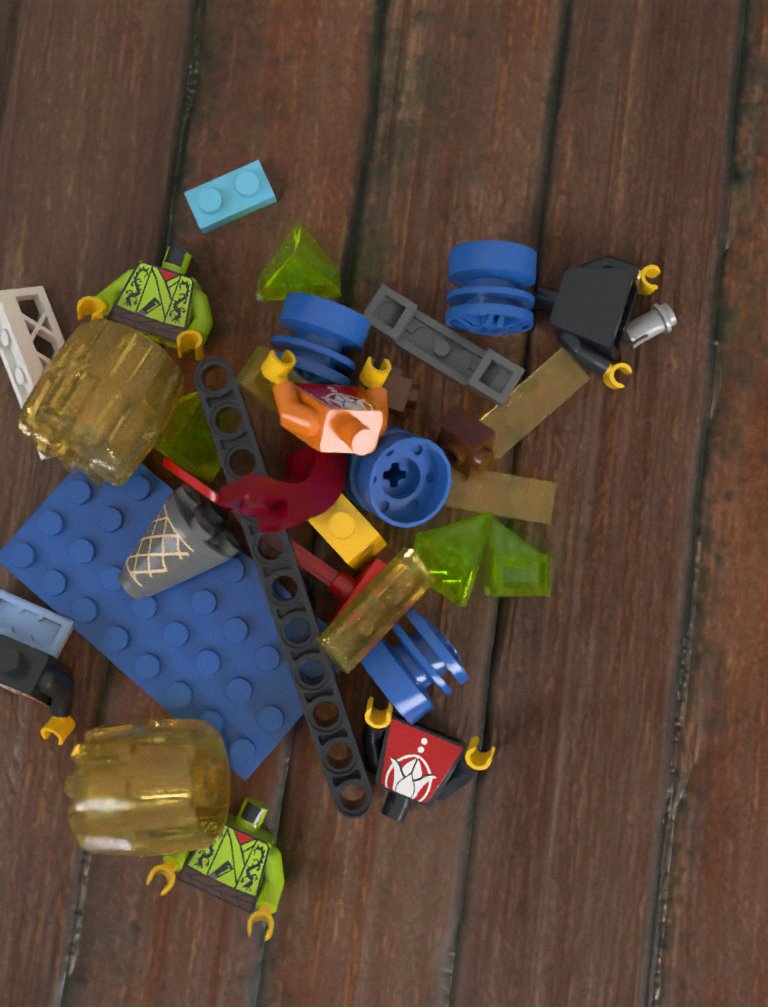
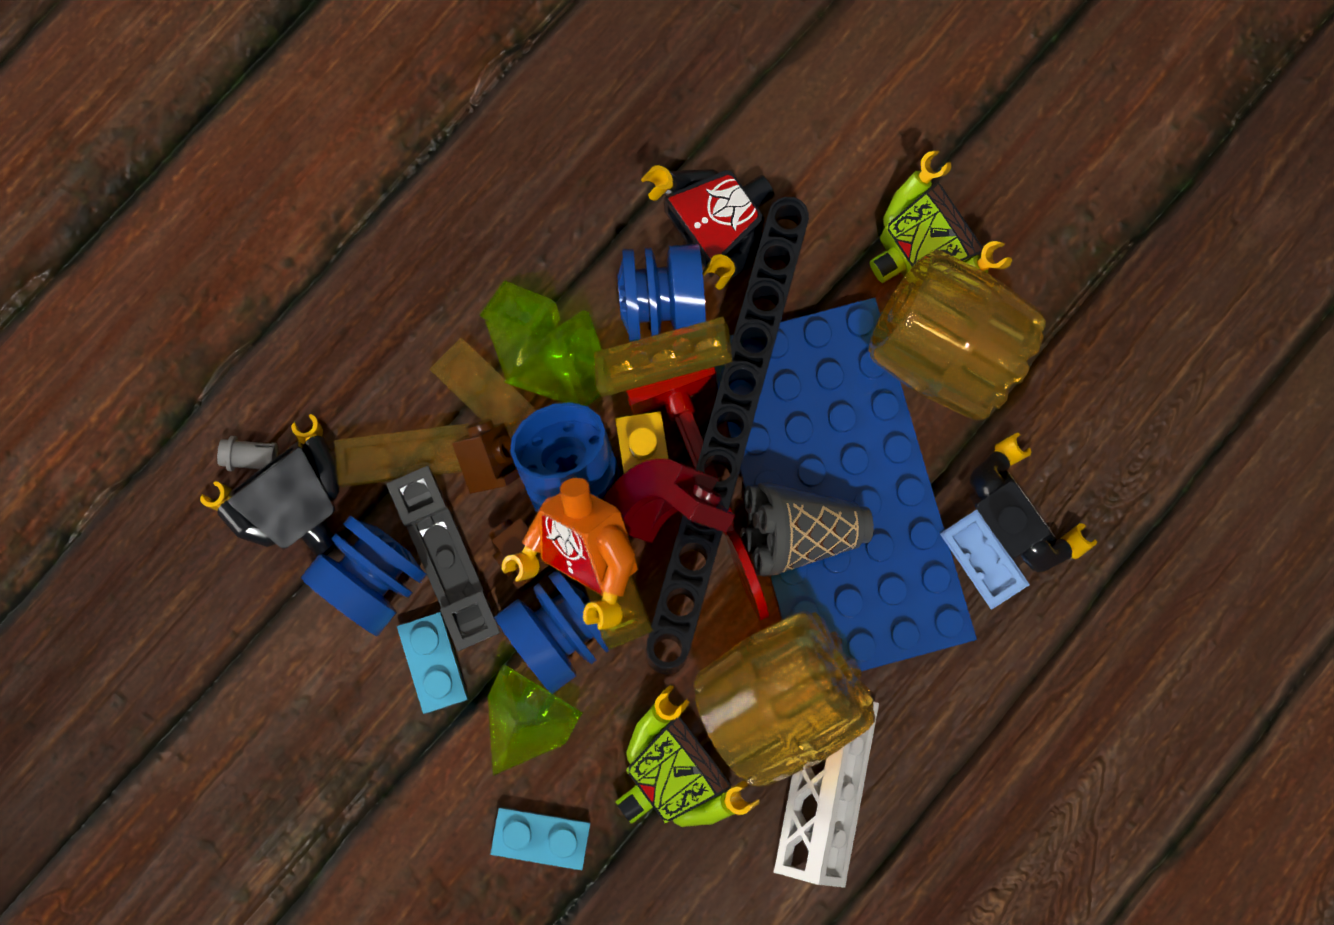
camera: 150 degrees left, 5 degrees down
(189, 438) = (723, 623): clear neon green slope -> none
(397, 266) = (432, 663): none -> medium azure plate

